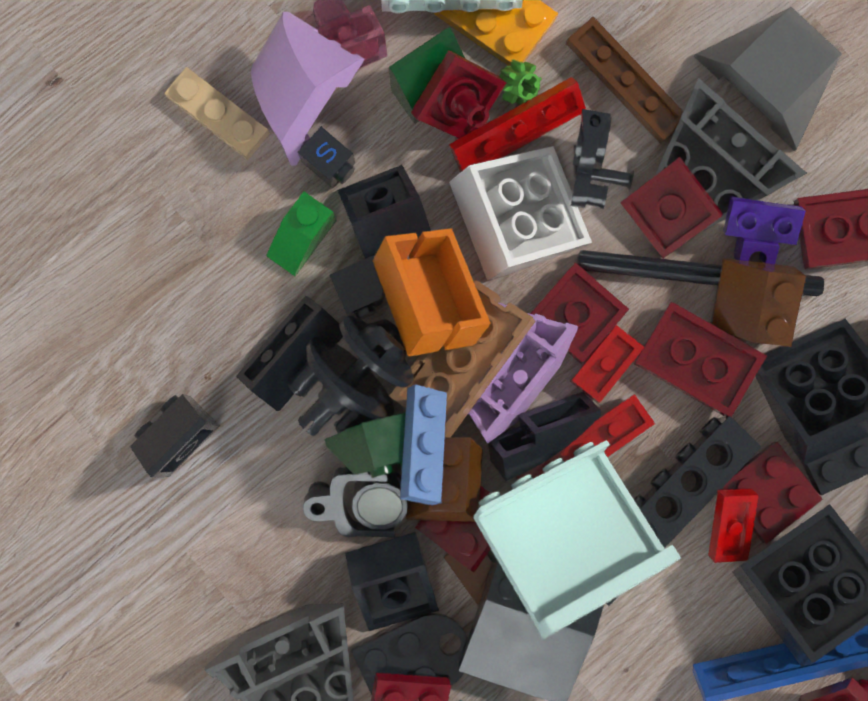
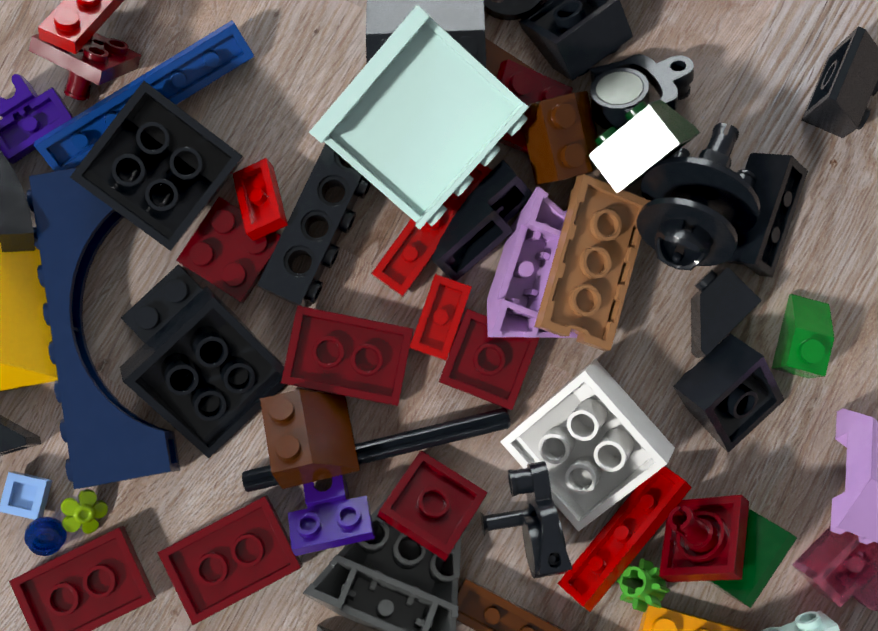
camera: 160 degrees right, 0 degrees up
(327, 158) = (811, 426): black brick -> none
(423, 445) = (604, 152): medium blue plate -> none
(430, 291) = (657, 311): orange piece -> none

